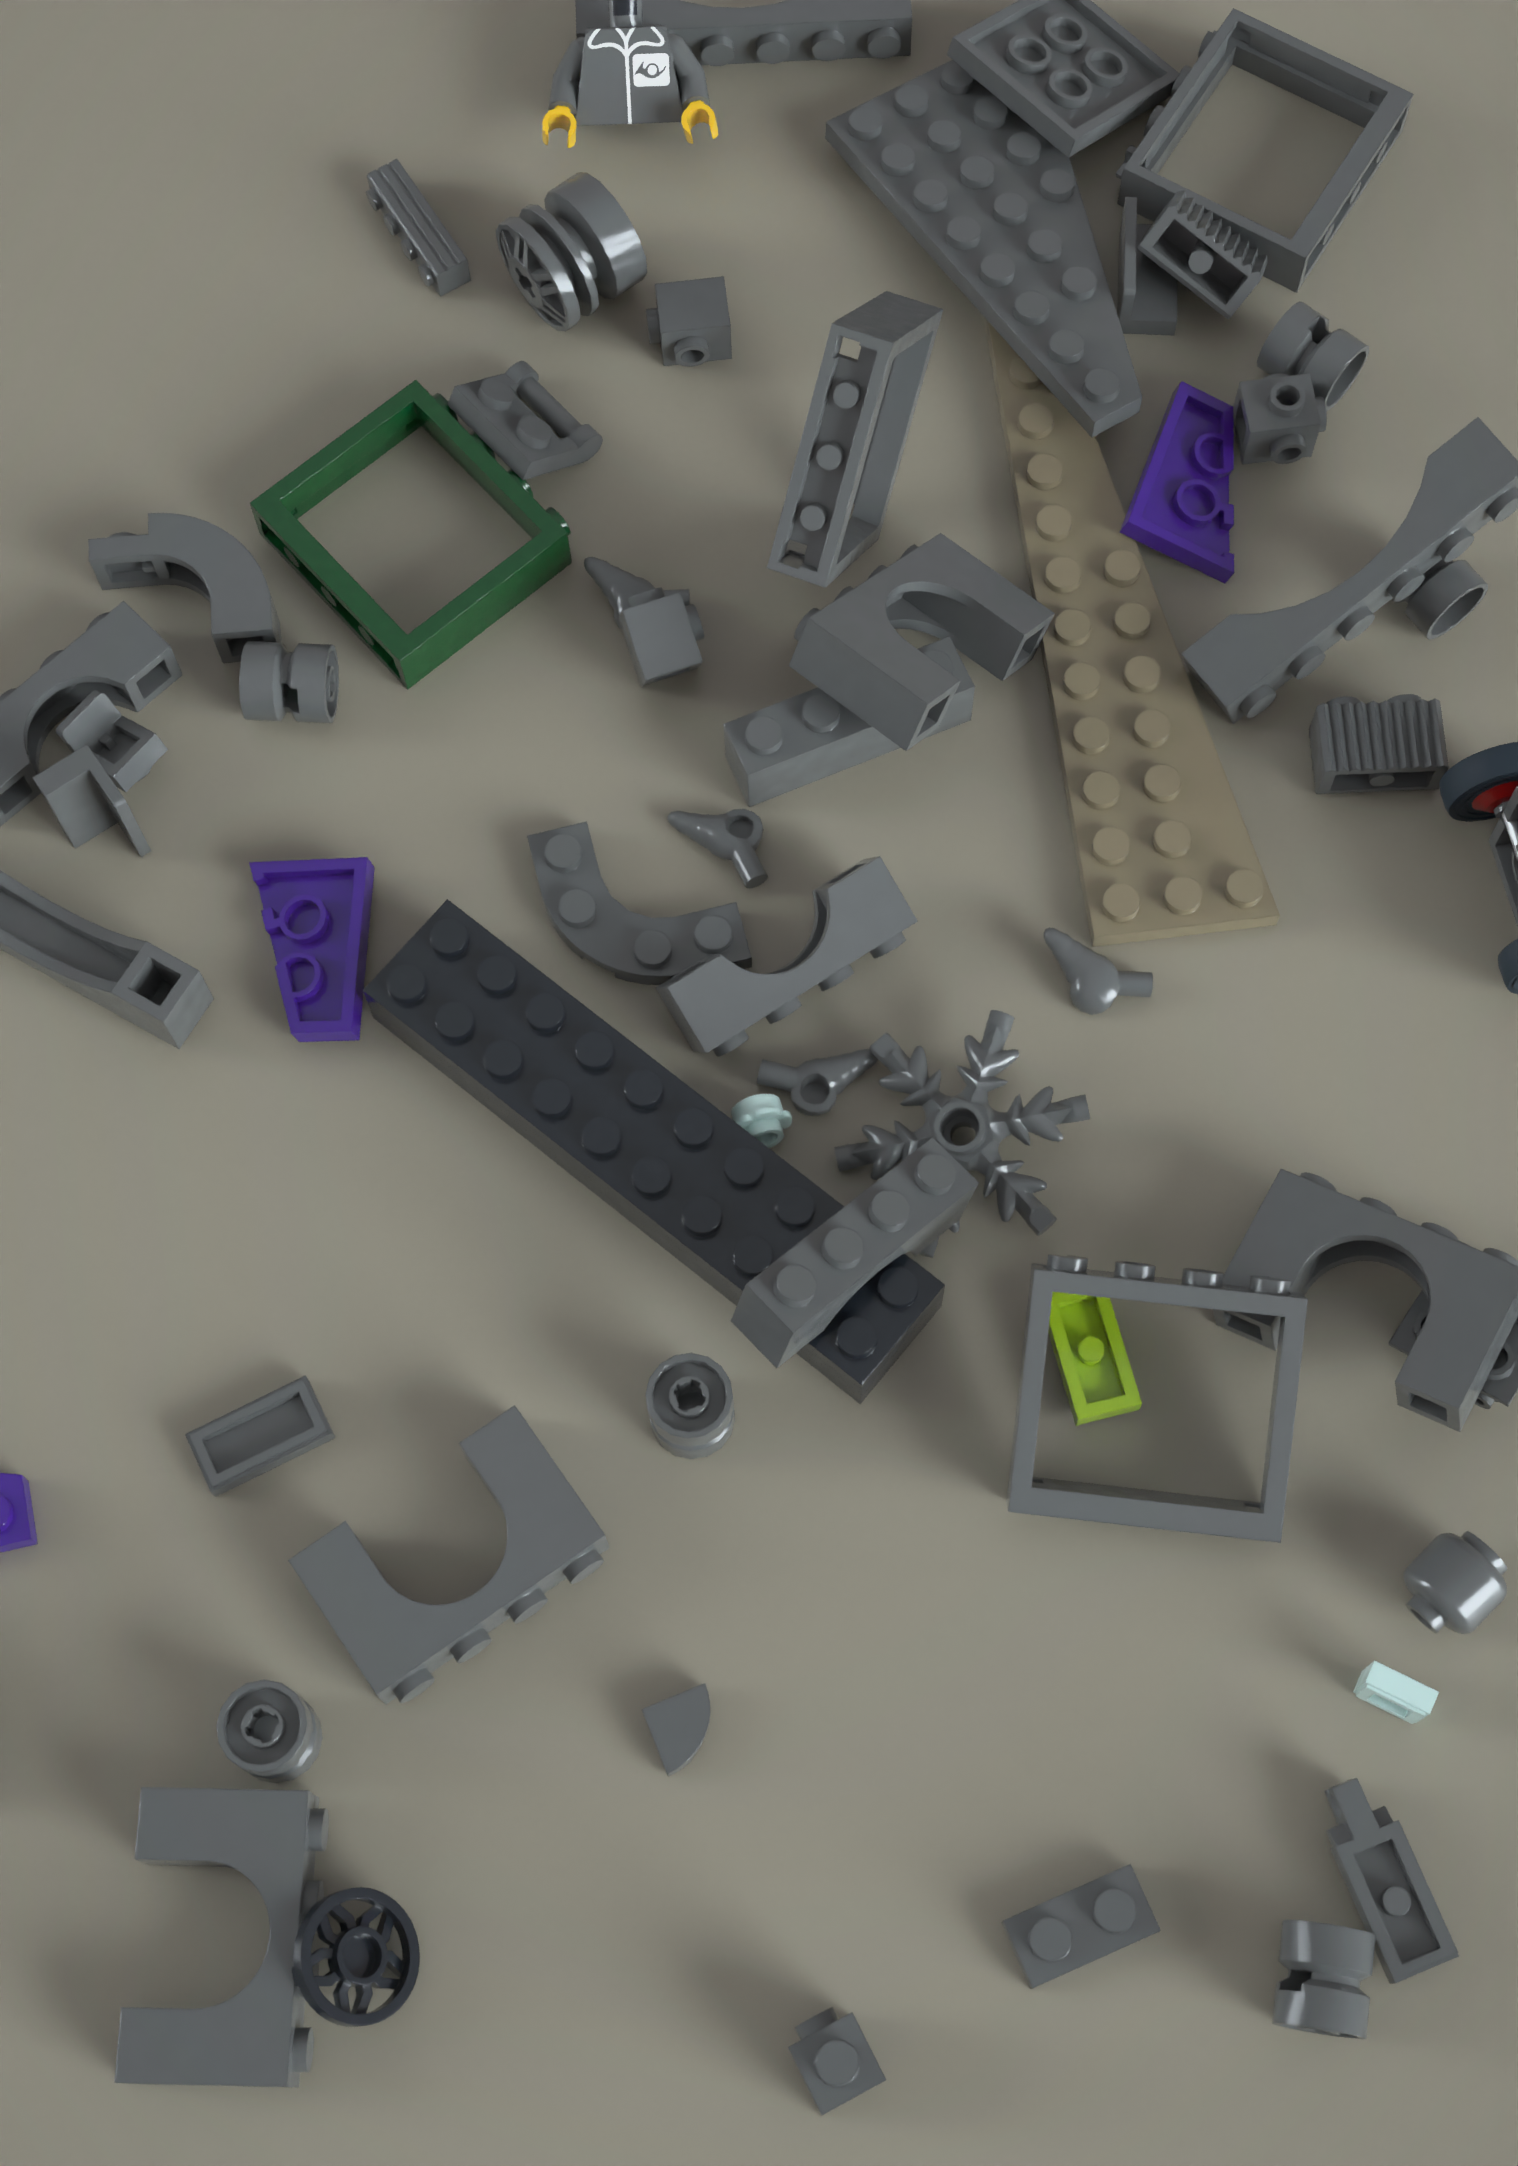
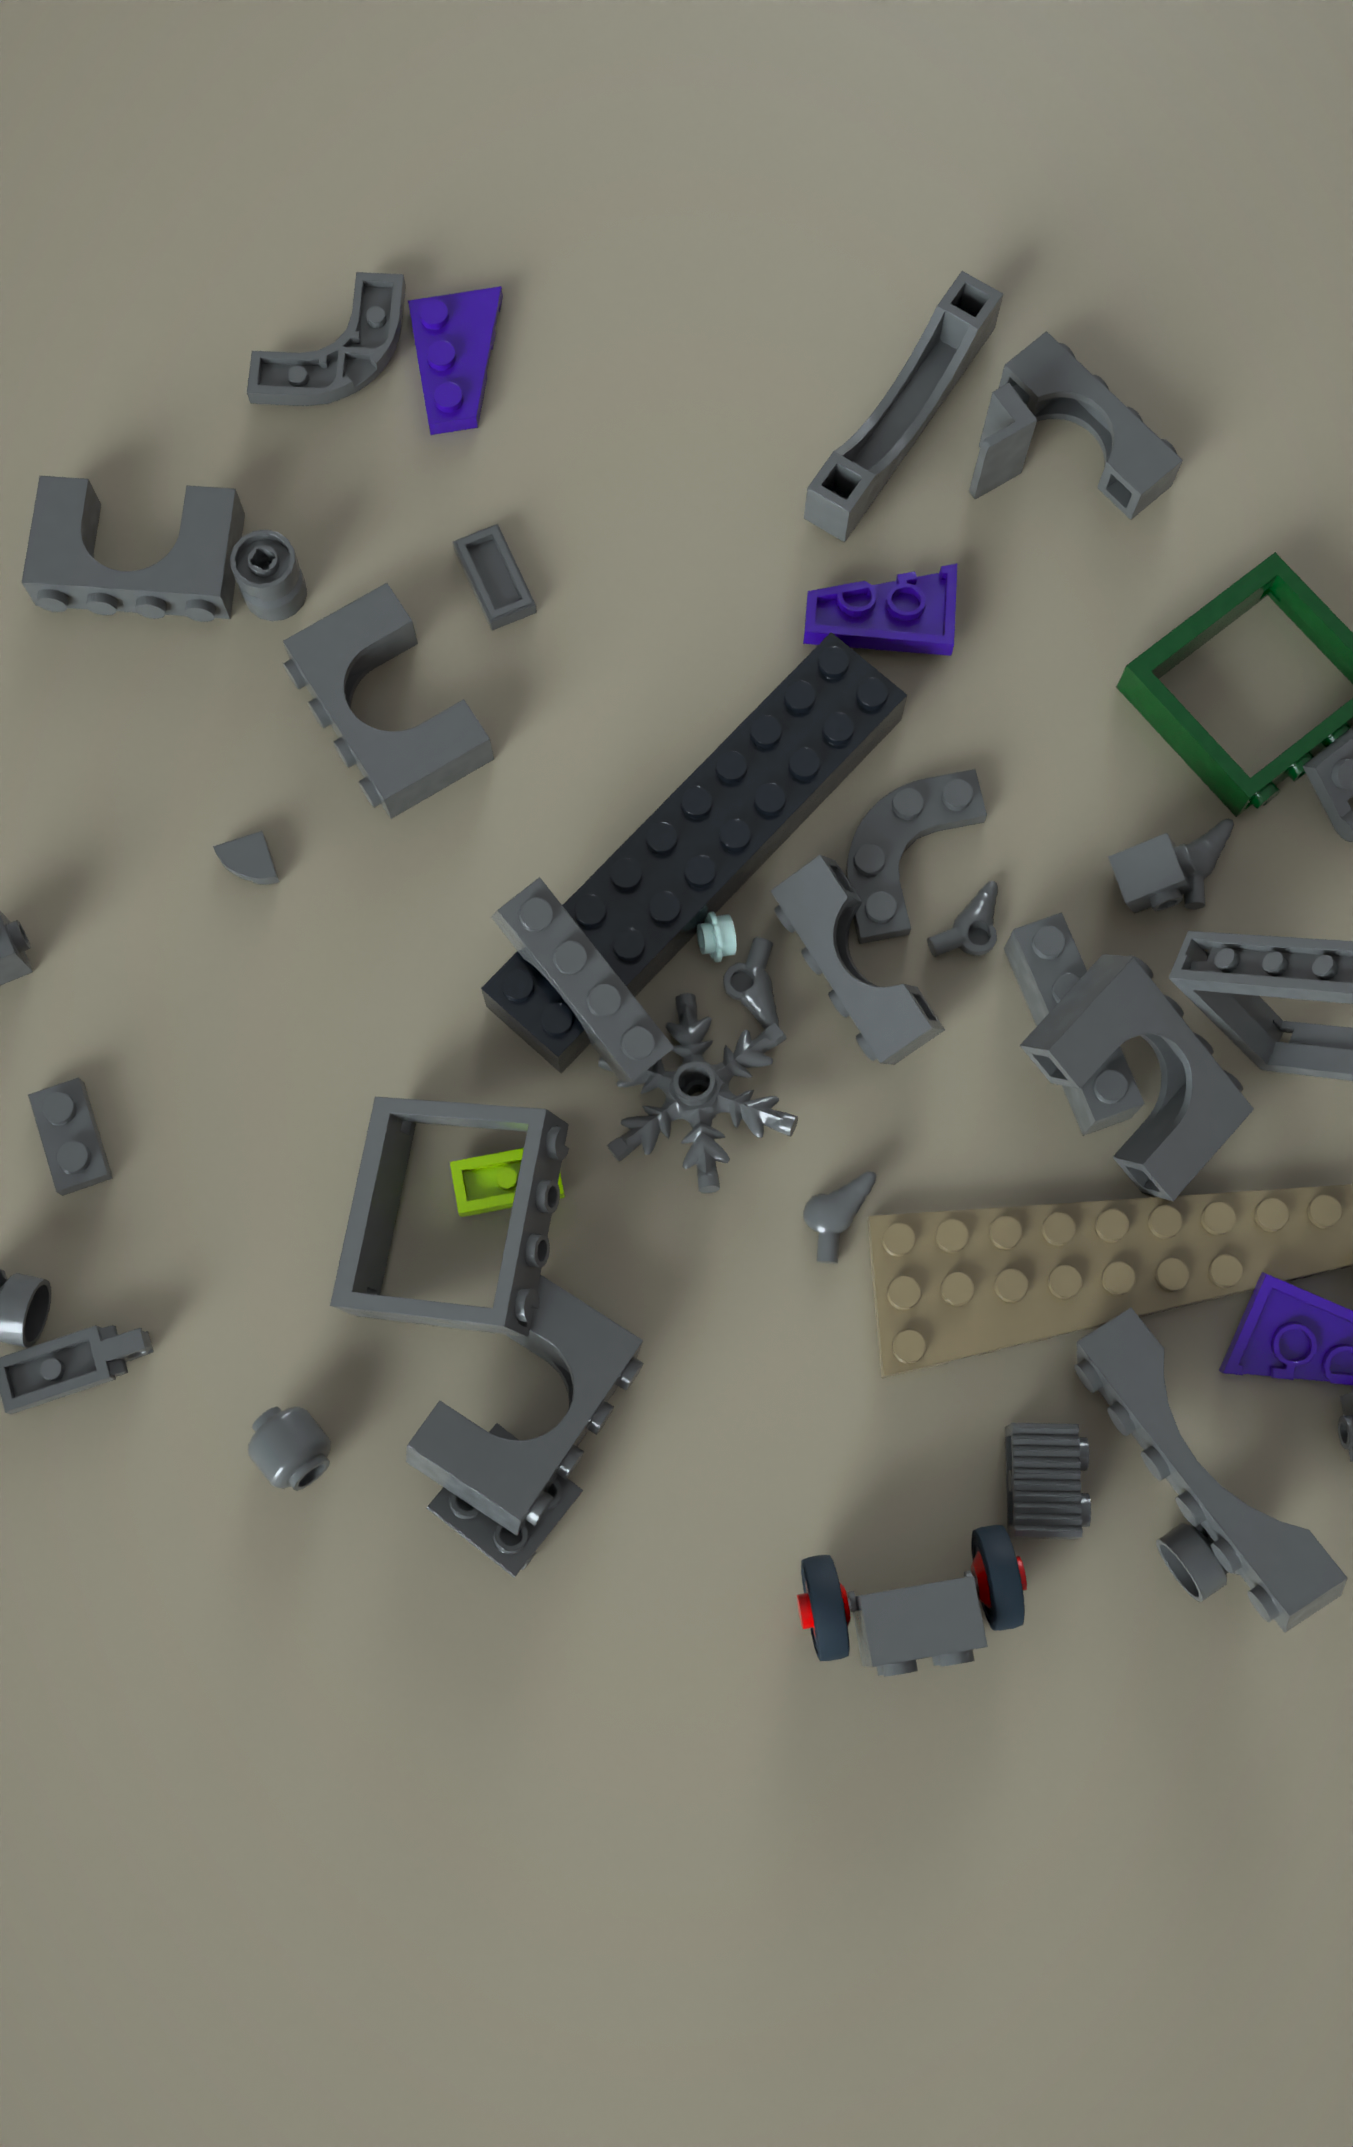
camera: 90 degrees right, 5 degrees up
(118, 743) = (1063, 460): dark grey bracket -> none
(197, 557) = (1196, 552): dark grey arch -> none
(289, 682) = (1113, 588): dark grey wheel -> none
(356, 1957) = (106, 631): black wheel -> none
(690, 1405) = (482, 868): dark grey wheel -> none
(1395, 1693) = (209, 1389): light aqua tile -> none

